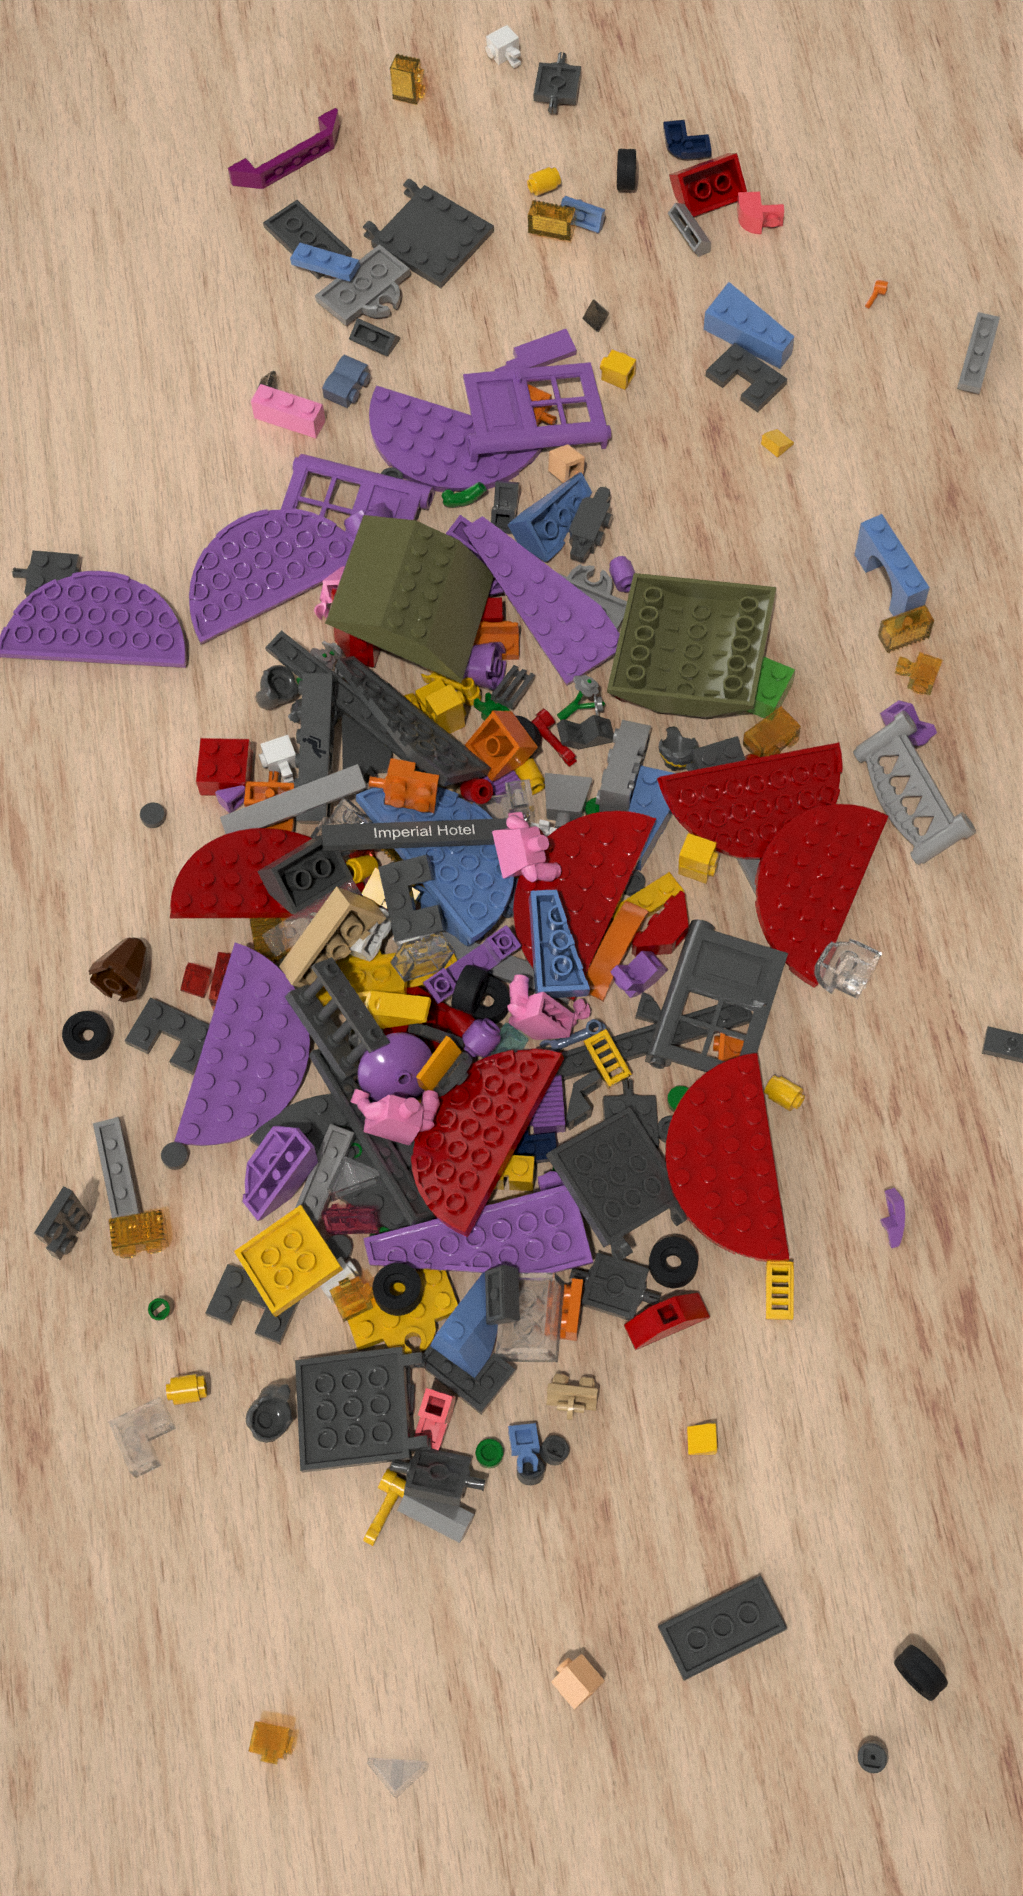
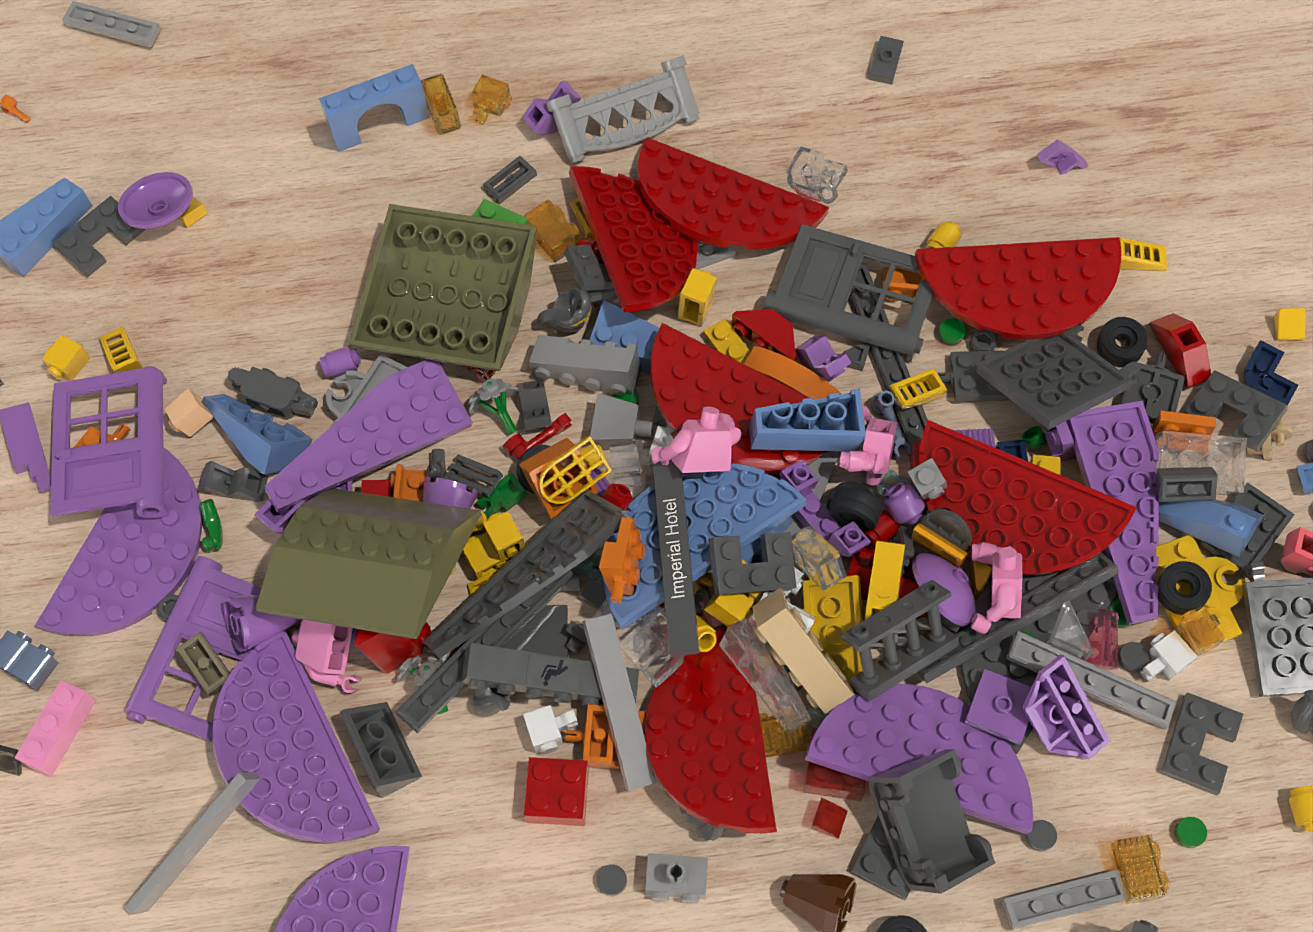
camera: 90 degrees left, 0 degrees up
(150, 860) = (676, 877): none -> light grey brick
(155, 1304) = (1222, 843): green hinge -> none
(171, 1285) = (1191, 832): none -> green tile
(175, 1046) = (928, 824): none -> dark grey windscreen
(187, 508) = (192, 842): none -> light grey tile
(231, 798) = (600, 784): medium lavender slope -> none
(255, 632) = (381, 747): none -> dark grey slope
(276, 687) = (456, 733): dark grey hair -> none
(286, 1110) = (999, 707): none -> medium lavender plate
(288, 1260) = (1165, 698): yellow plate -> none
(304, 875) = (716, 684): dark grey slope -> none
(336, 500) = (204, 663): none -> dark tan brick
(477, 738) = (584, 472): none -> yellow window
(497, 1051) = (928, 480): none -> light grey brick
(522, 661) = (438, 467): none -> dark grey arm
(578, 1107) = (969, 418): dark grey slope -> none
(612, 1358) = (1259, 409): none -> dark grey plate
(618, 420) = (130, 364): none -> yellow slope
(638, 1400) = (1260, 373): none -> dark blue plate
(778, 410) = (155, 200): none -> medium lavender dish
(820, 696) = (512, 182): none -> dark grey tile

